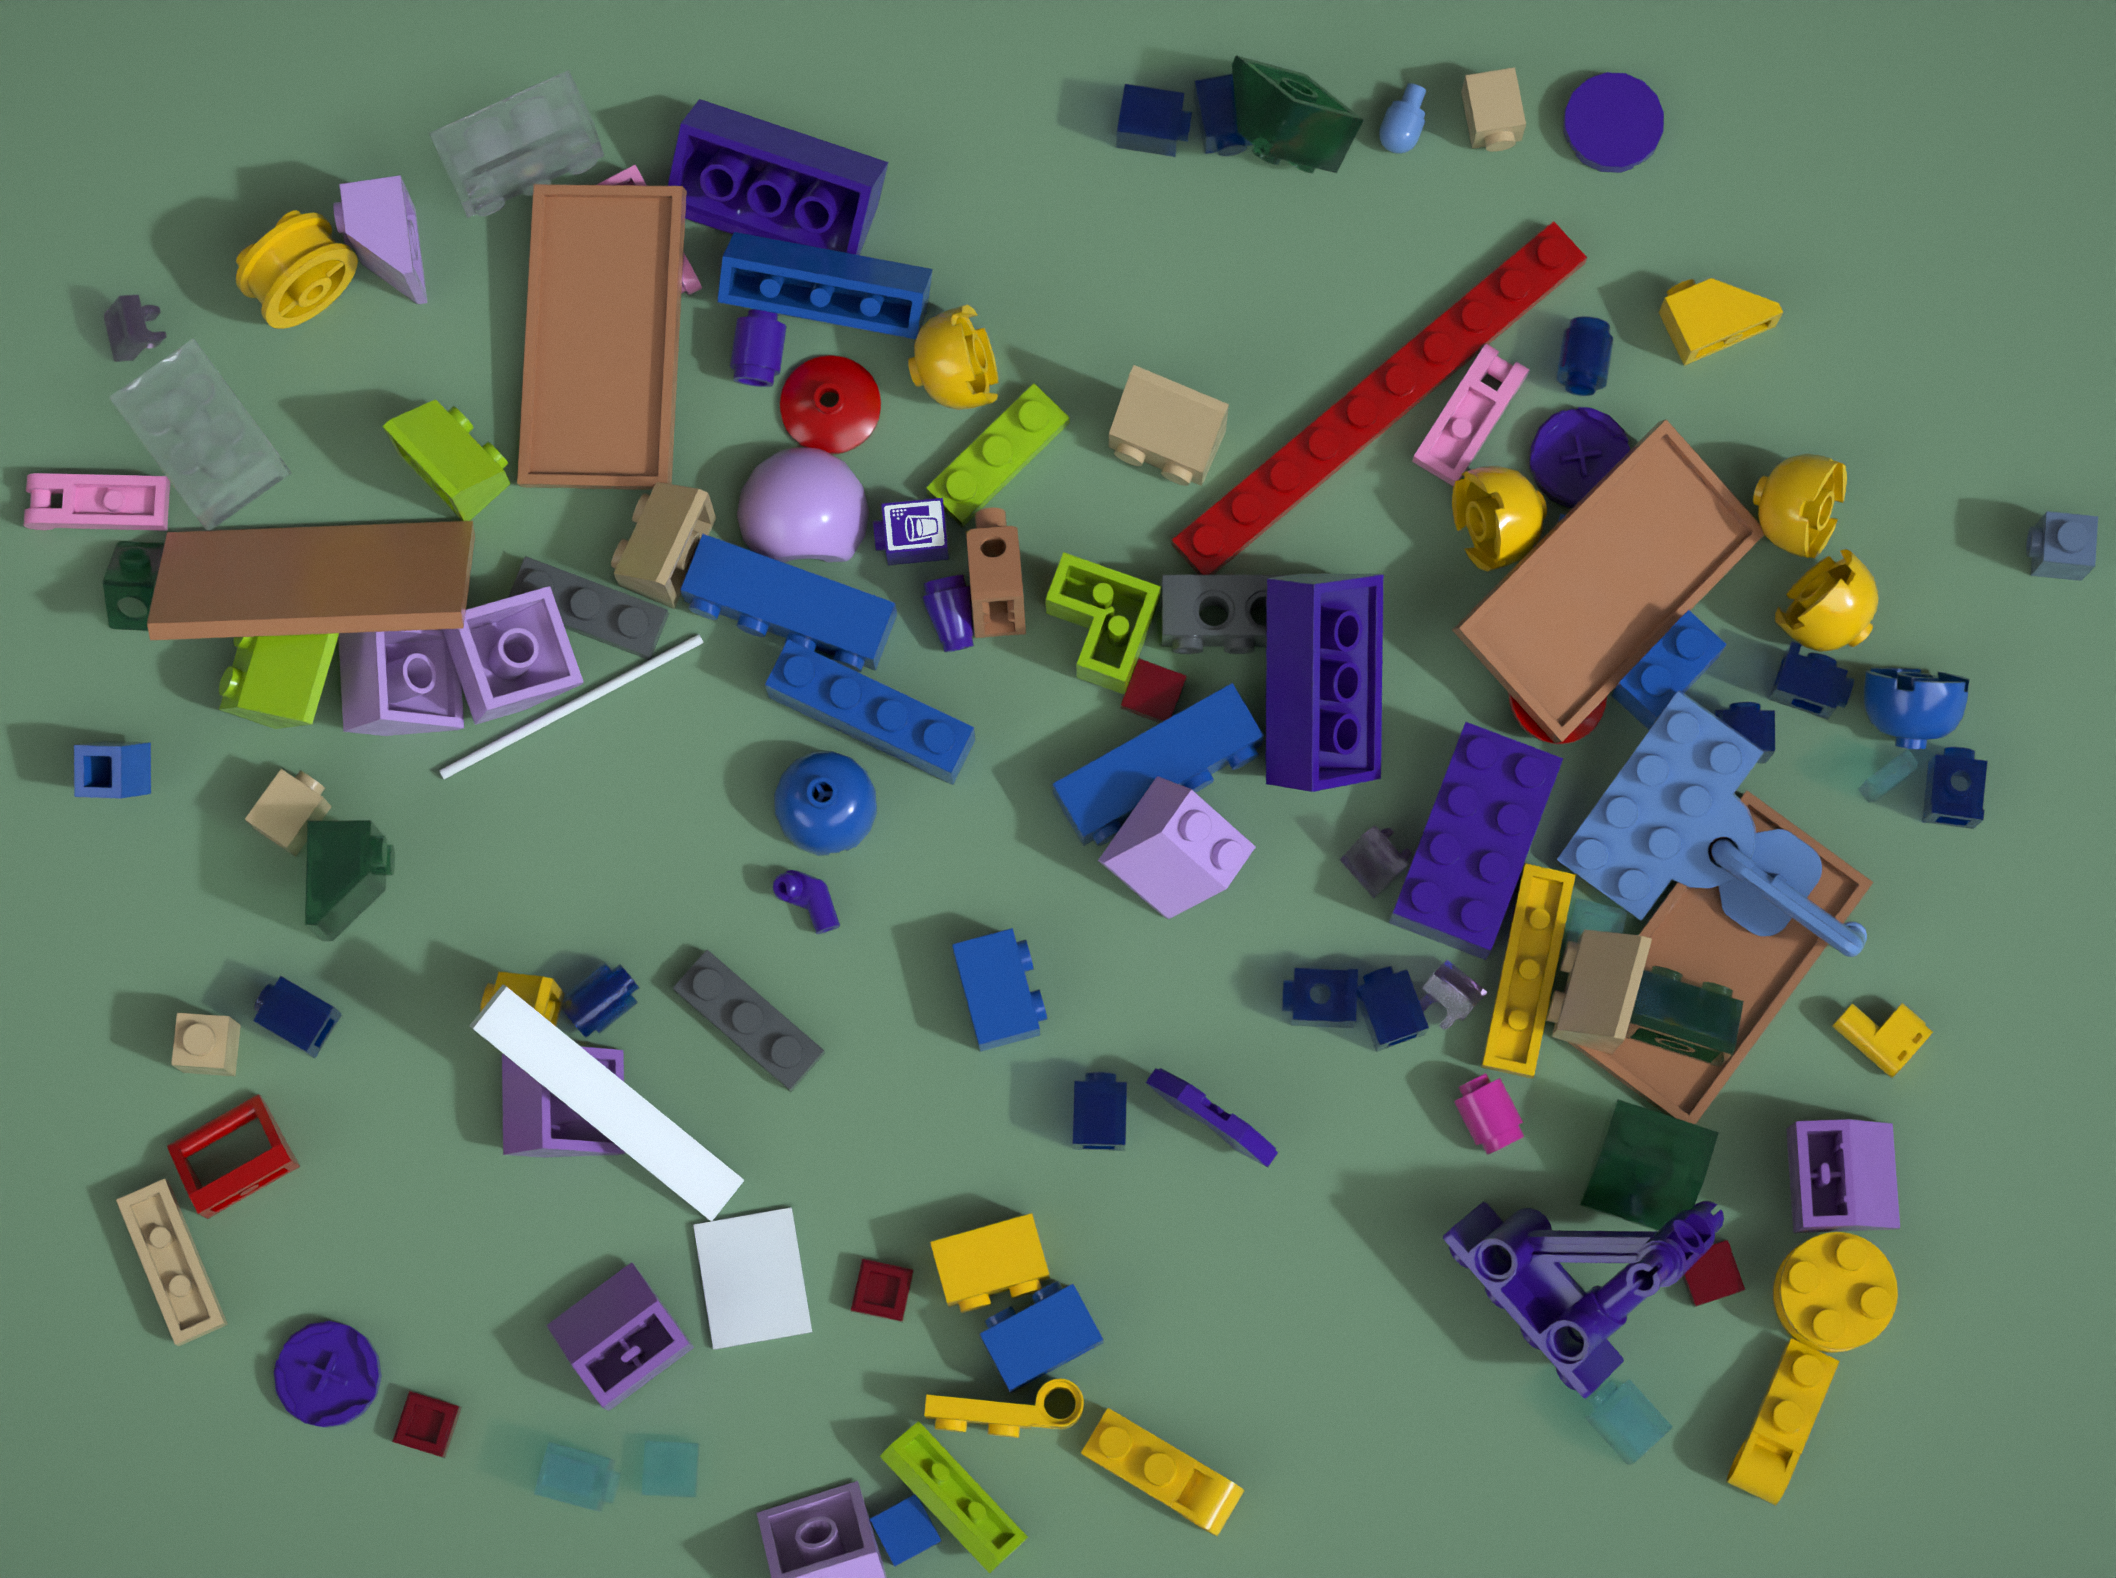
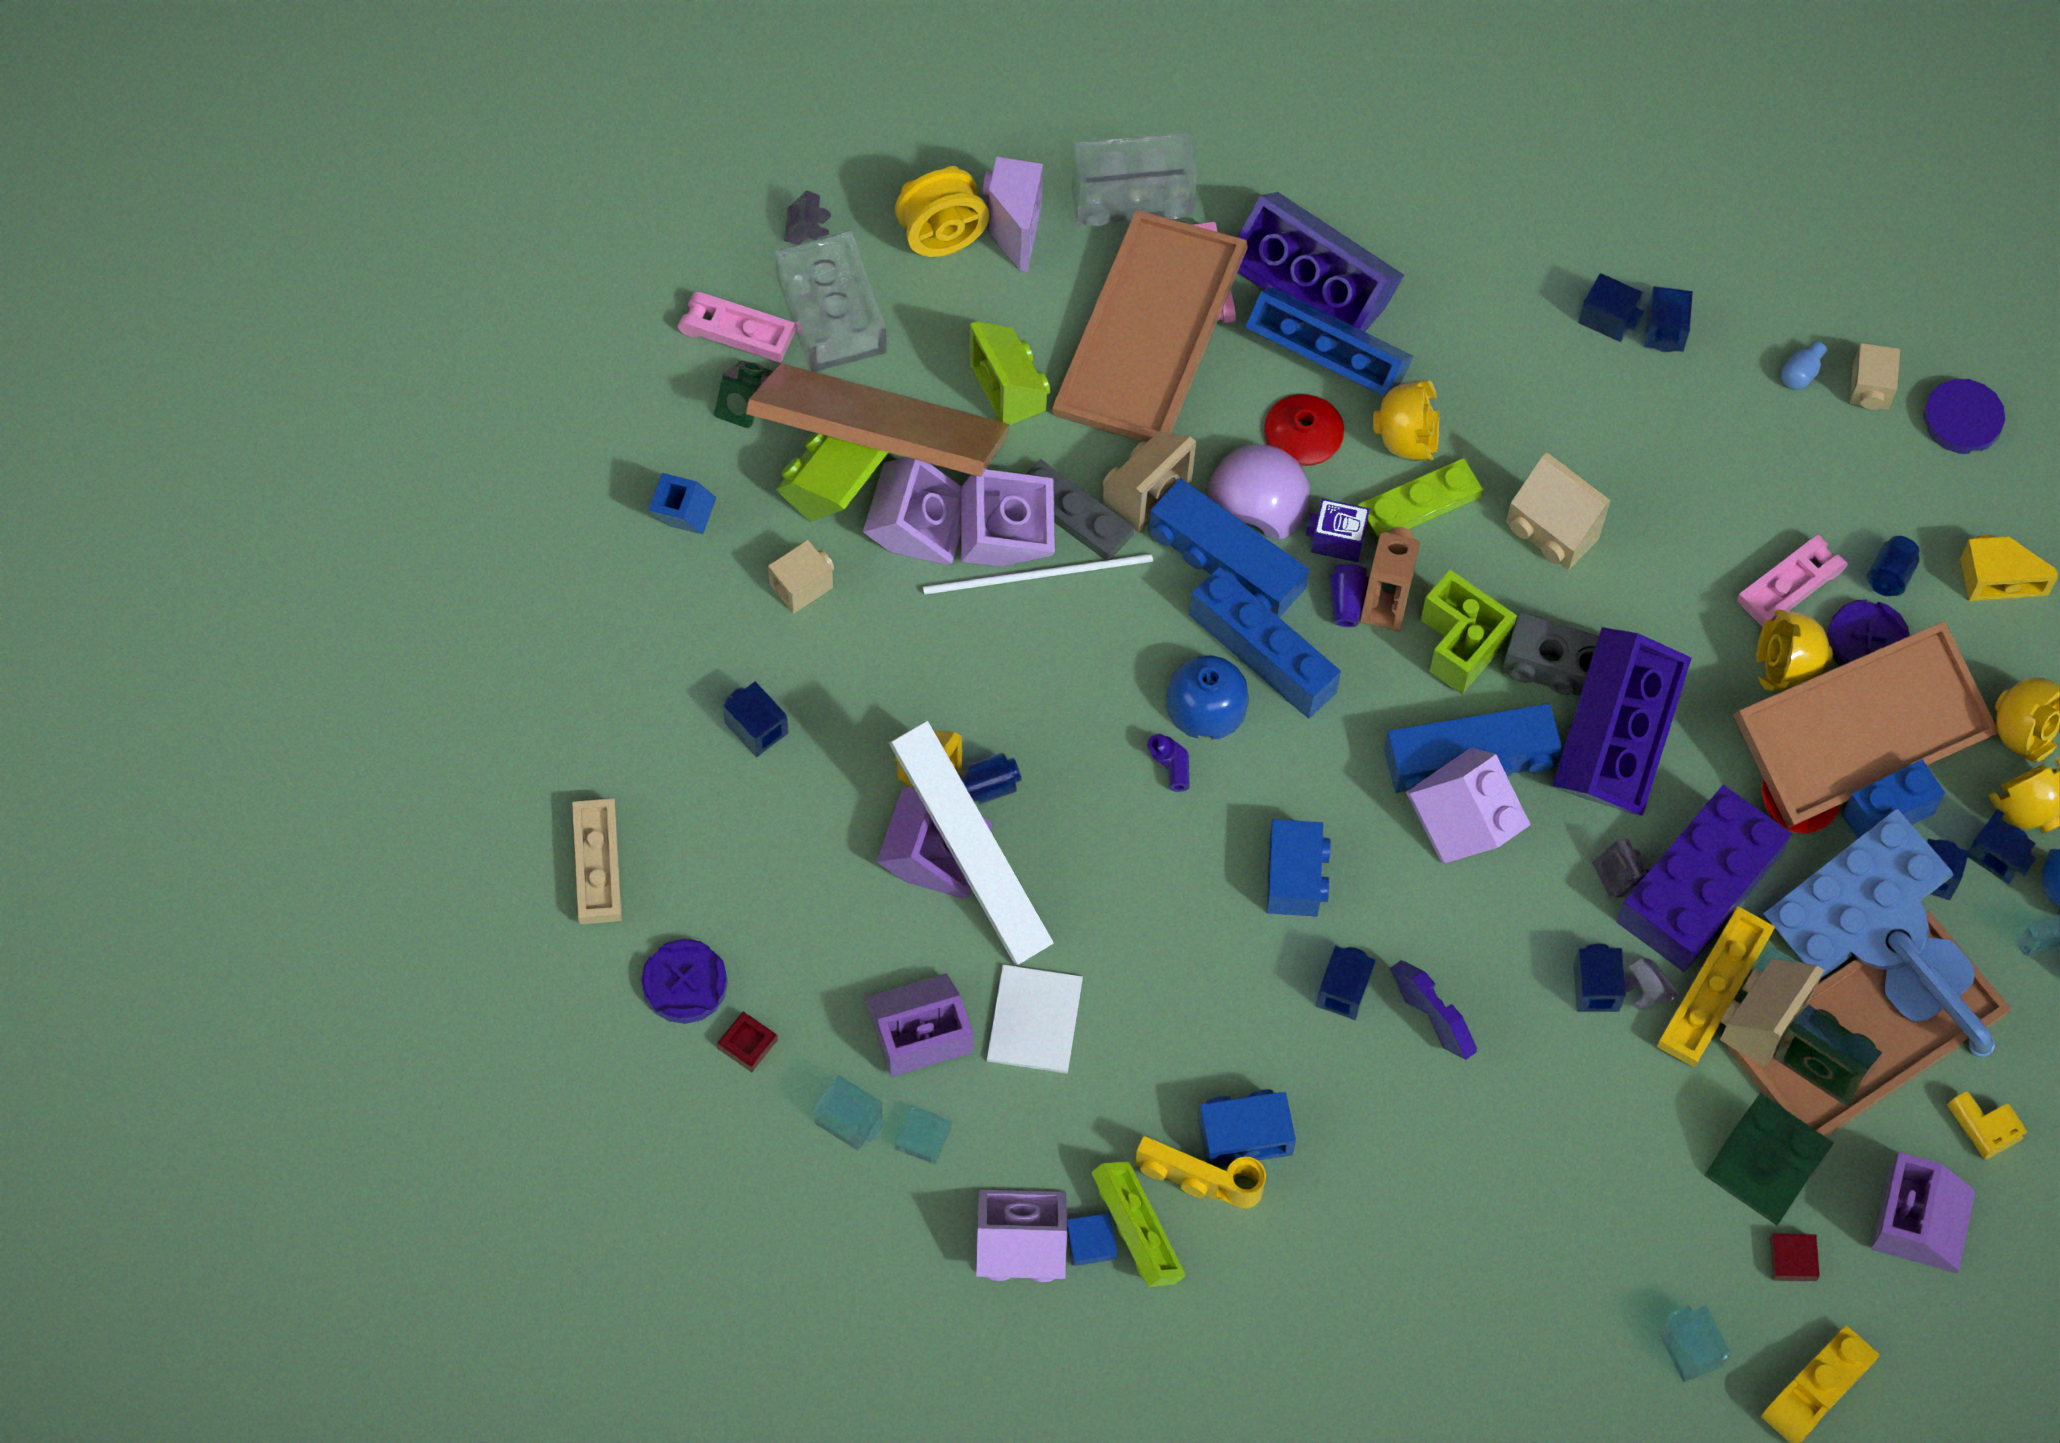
camera: 15 degrees right, 15 degrees down
(206, 1044) = (680, 715): tan brick -> none
(247, 1177) = (675, 818): red tile -> none
(343, 873) = (829, 625): clear green slope -> none
(749, 1020) = (1096, 833): dark grey plate -> none
(757, 348) = (1263, 371): dark purple brick -> none
(882, 1290) = (1132, 1058): dark red tile -> none
(990, 1262) = (1224, 1060): yellow brick -> none
(1153, 691) = (1484, 696): dark red tile -> none
(1162, 1472) = (1311, 1260): yellow plate -> none
(1291, 117) = (1718, 333): clear green slope -> none
(1337, 1012) = (1546, 966): clear blue brick -> none
(1379, 401) = (1725, 551): red plate -> none
(1489, 1113) = (1653, 1079): dark pink brick -> none
(1524, 1276) = (1661, 1232): dark purple plate -> none
(1835, 1292) = (1892, 1299): yellow wheel -> none

